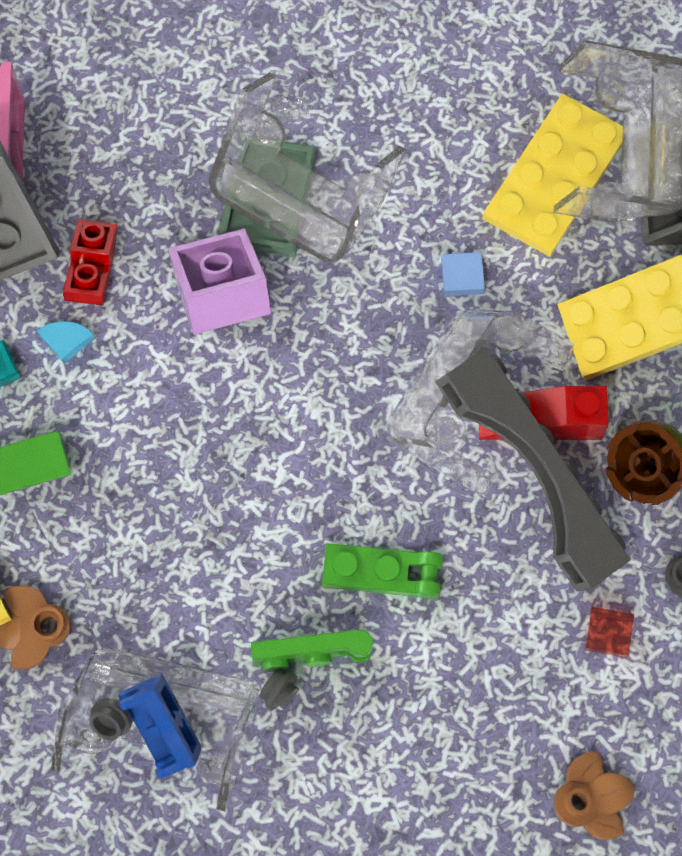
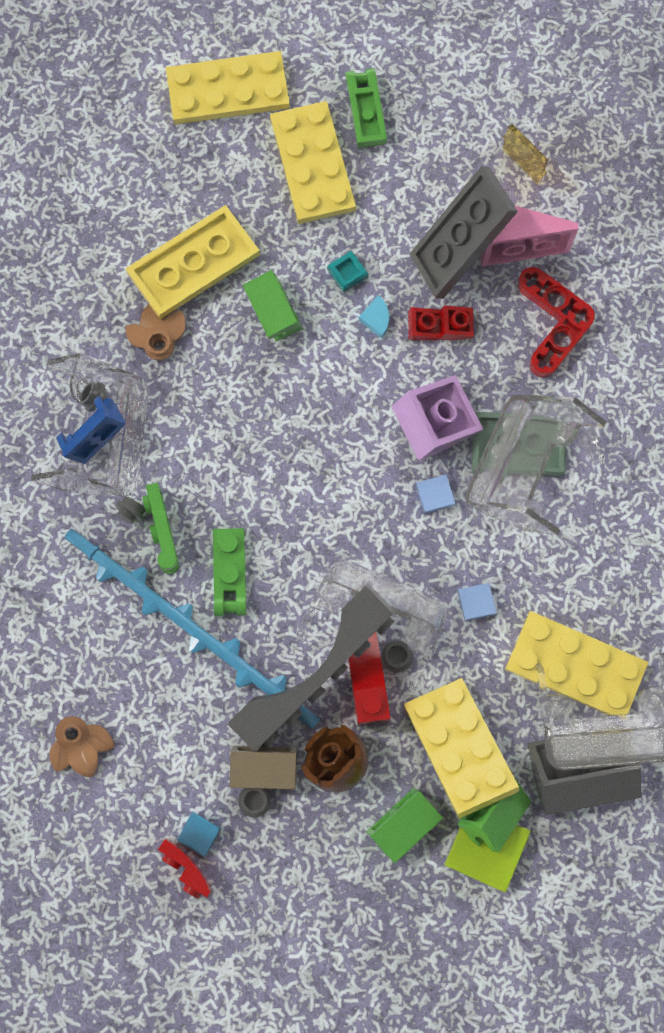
camera: 80 degrees right, 5 degrees up
(117, 114) = (566, 323): none -> red beam
(316, 302) = (435, 494): none -> light blue tile
(432, 642) = (181, 616): none -> dark azure plant
(523, 374) = (396, 656): none -> dark grey plate
(609, 632) = (204, 746): clear red tile -> none
(652, 547) = (263, 768): none -> dark tan hinge

